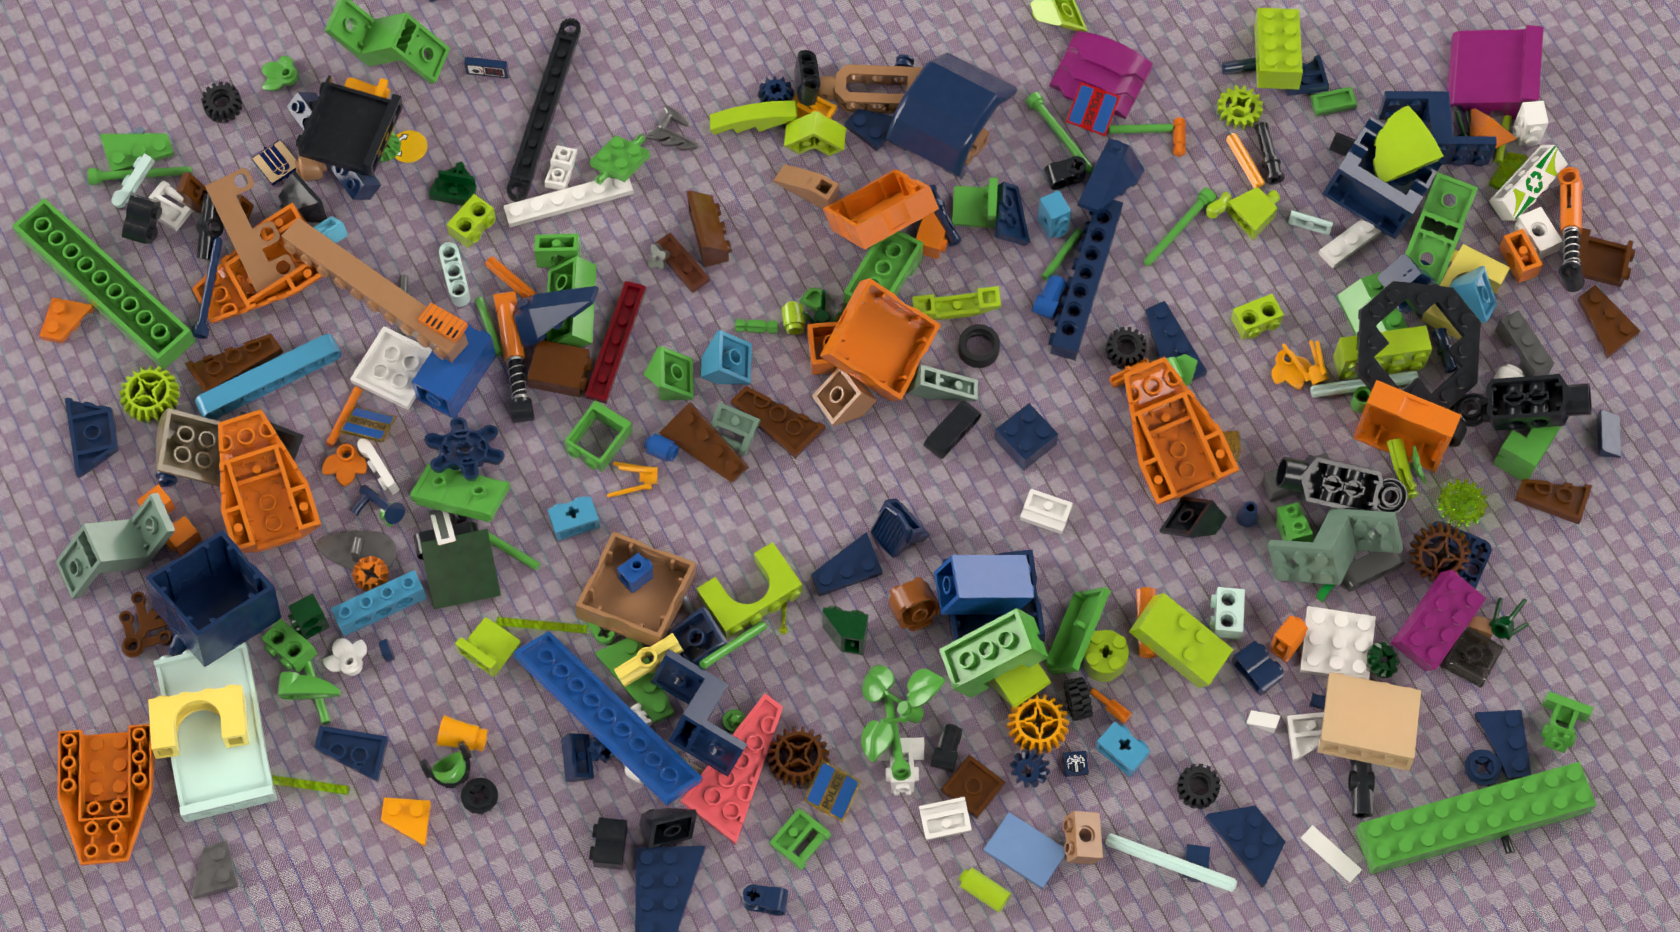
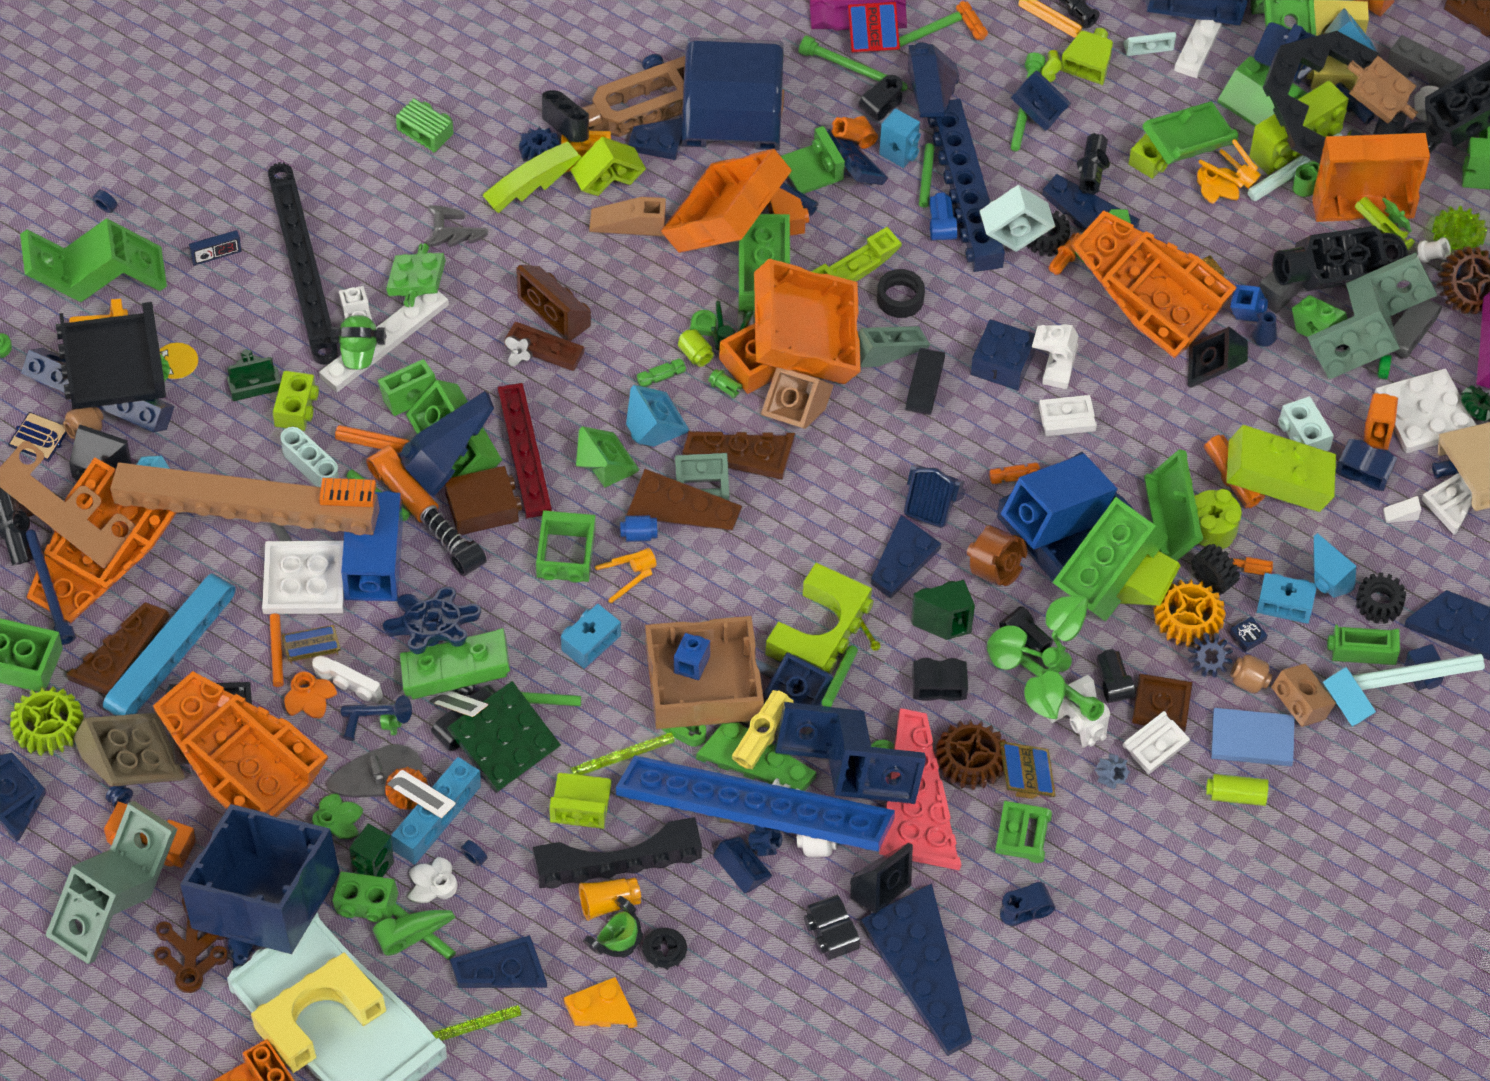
camera: 30 degrees left, 10 degrees down
(311, 573) = (338, 816): none -> bright green plate
(370, 586) = (421, 793): none -> sticker
(534, 716) = (563, 864): none -> black arch
(541, 194) = (358, 340): none -> bright green cap
(700, 35) = (424, 124): none -> bright green brick
(798, 357) = (724, 383): none -> bright green pin
(812, 683) = (939, 679): none -> black brick
(896, 825) = (1112, 771): none -> sand blue gear
(902, 671) = (1036, 638): none -> black piece
(975, 539) = (1012, 473): none -> orange axle
(1028, 192) = (855, 130): none -> orange piece
(1054, 798) = (1251, 673): none -> medium nougat head
(1071, 456) = (1063, 347): none -> white tile
(1099, 328) = (1017, 218): none -> light aqua brick
(1117, 857) = (1349, 696): none -> medium azure slope
(1165, 746) = (1332, 570): none -> dark azure slope
(1173, 836) = (1364, 645): none -> bright green window
(1187, 232) = (1040, 100): none -> dark blue bracket
(1196, 306) = (1093, 163): none -> black piece
(1246, 485) = (1248, 303): none -> blue brick
(1289, 316) = (1189, 132): none -> bright green container
(1426, 509) = (1433, 250): none -> white bush
(1462, 355) = (1382, 89): none -> medium nougat plate

